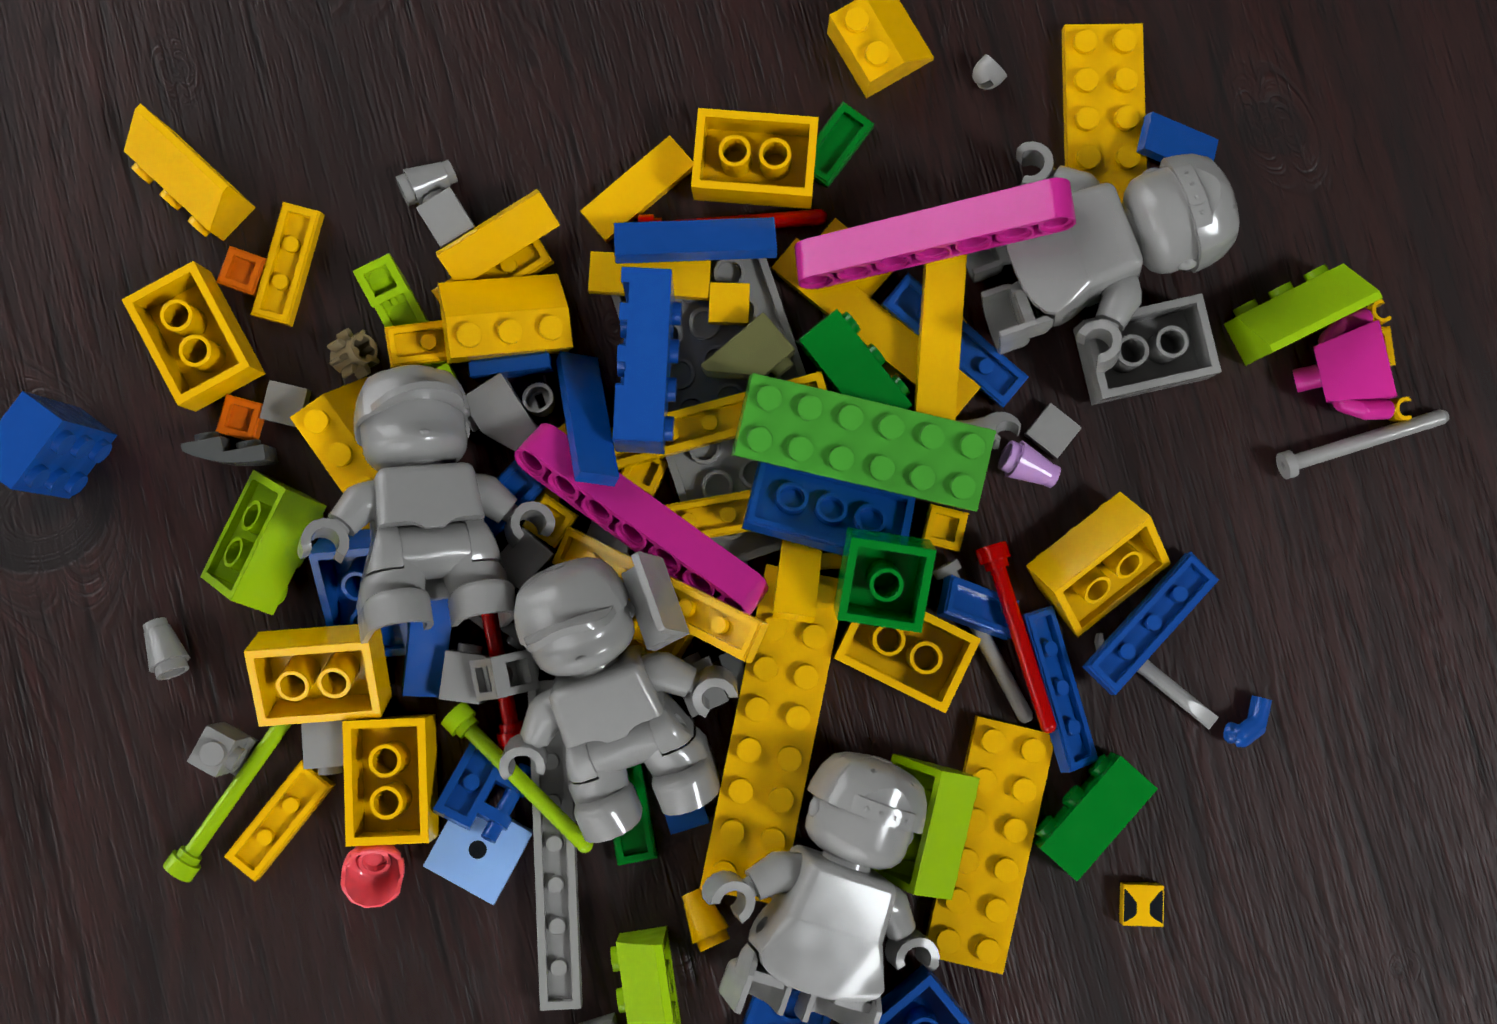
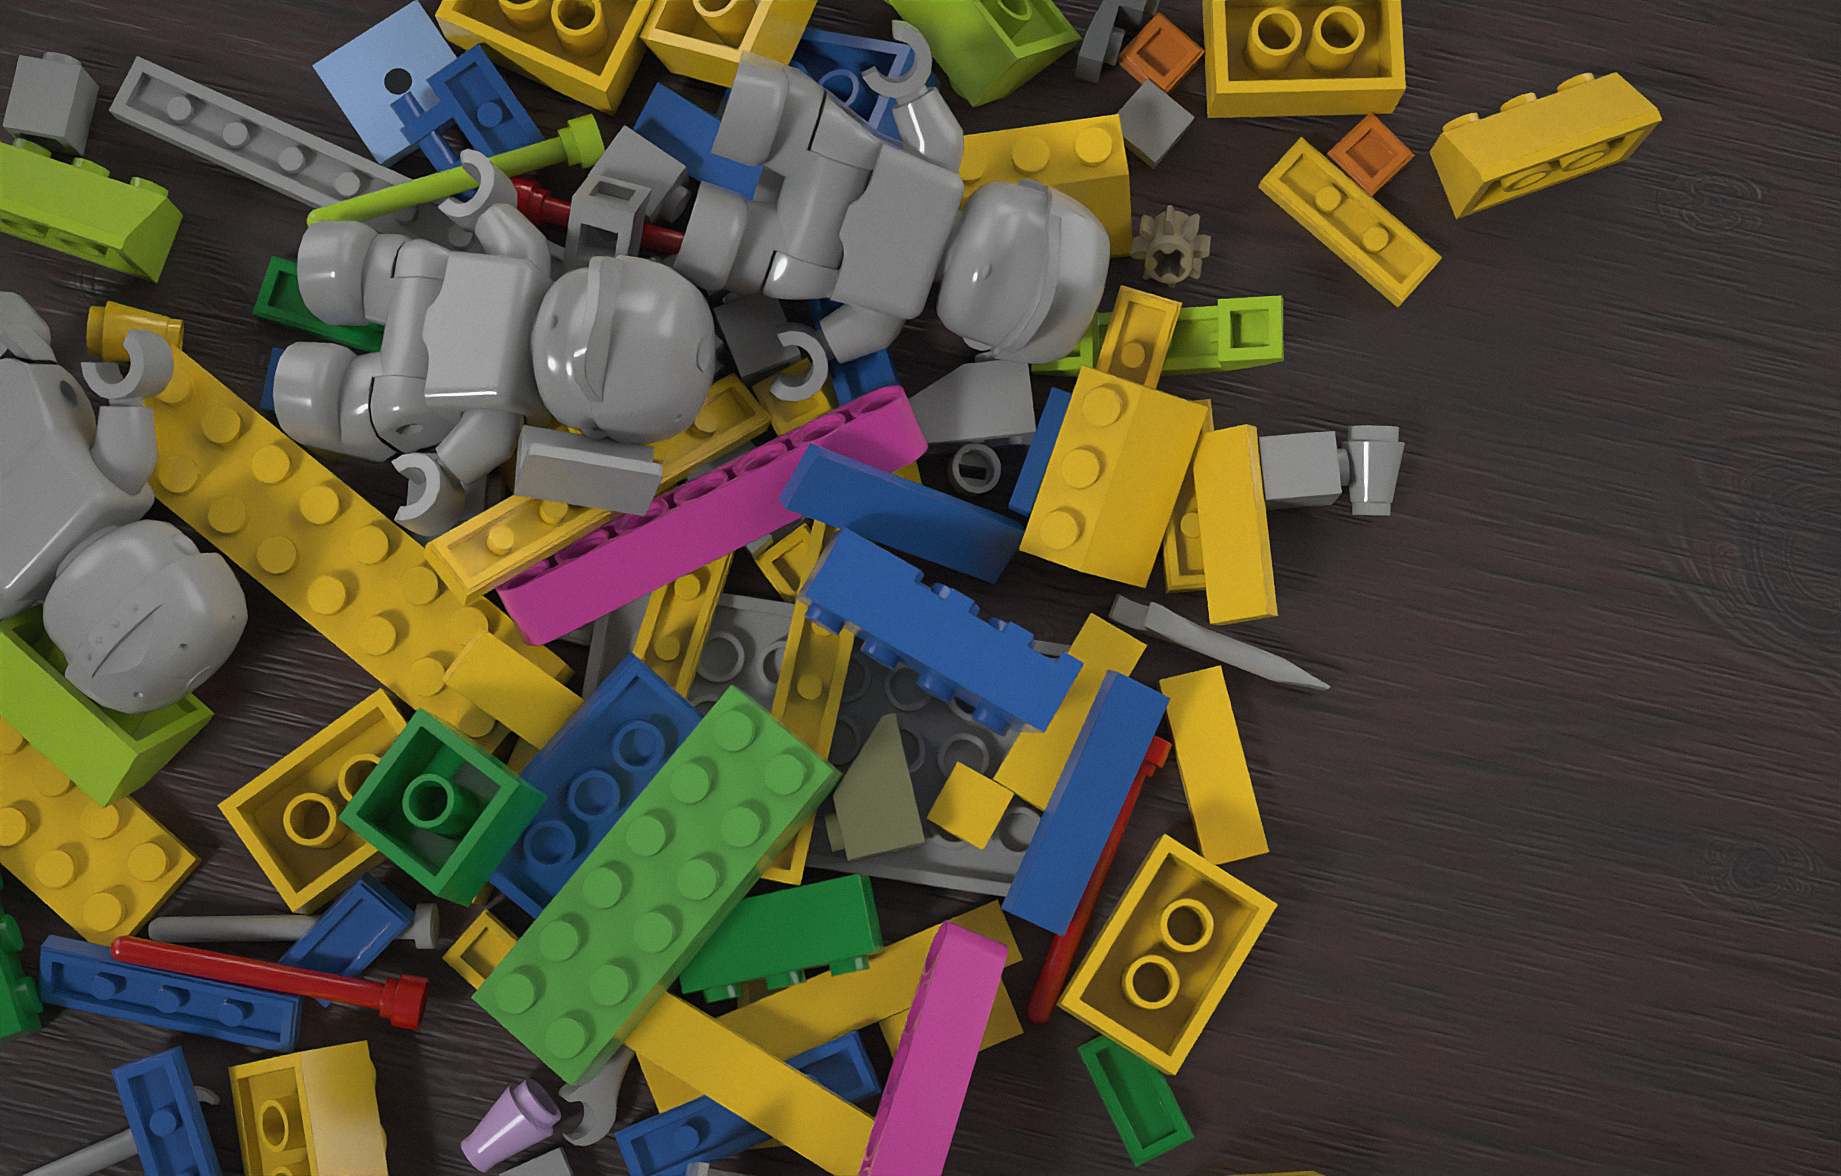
camera: 110 degrees right, 5 degrees down
(572, 245) = (1166, 625): none -> light grey piece

